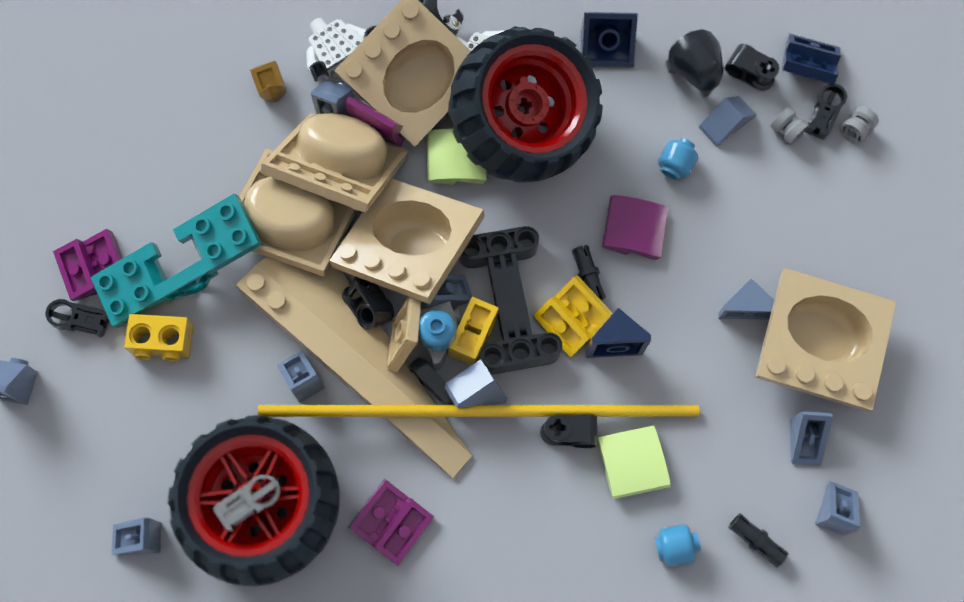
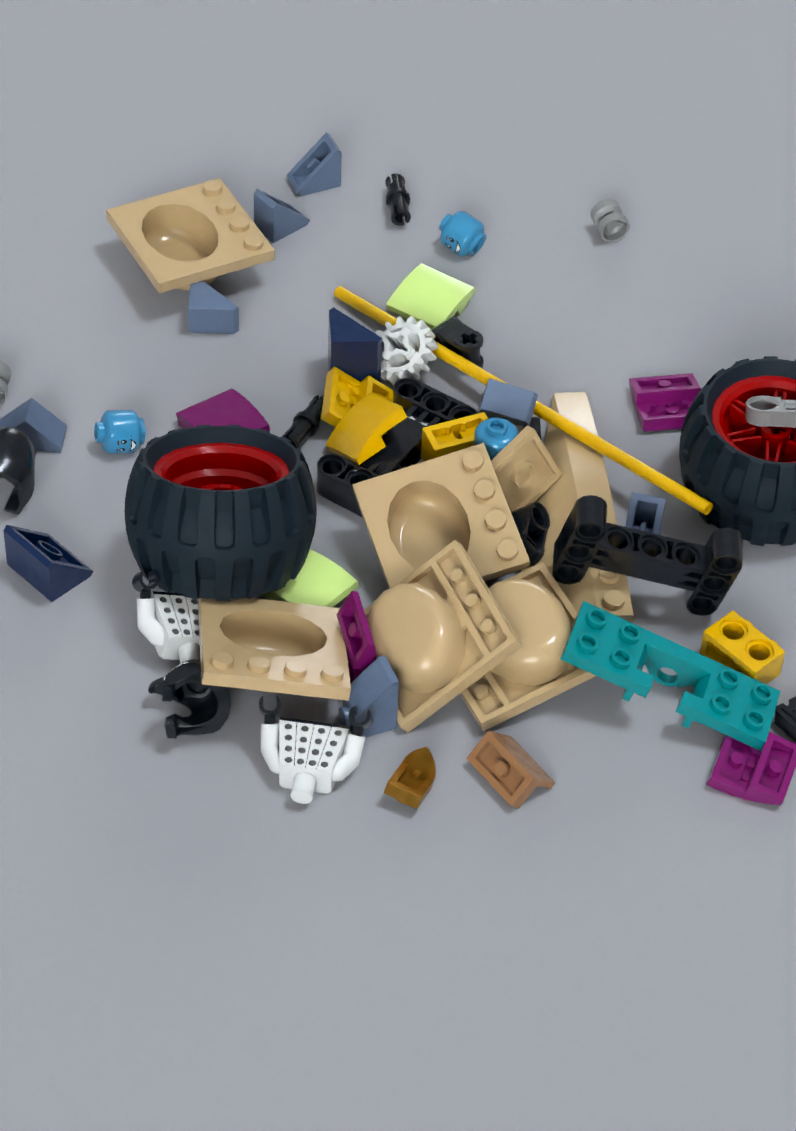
camera: 135 degrees left, 25 degrees down
(214, 356) = (700, 569): none -> black beam
(225, 141) = (508, 768): none -> medium nougat panel
(536, 283) = (360, 430): none -> yellow slope
(591, 382) = (406, 349): none -> white gear

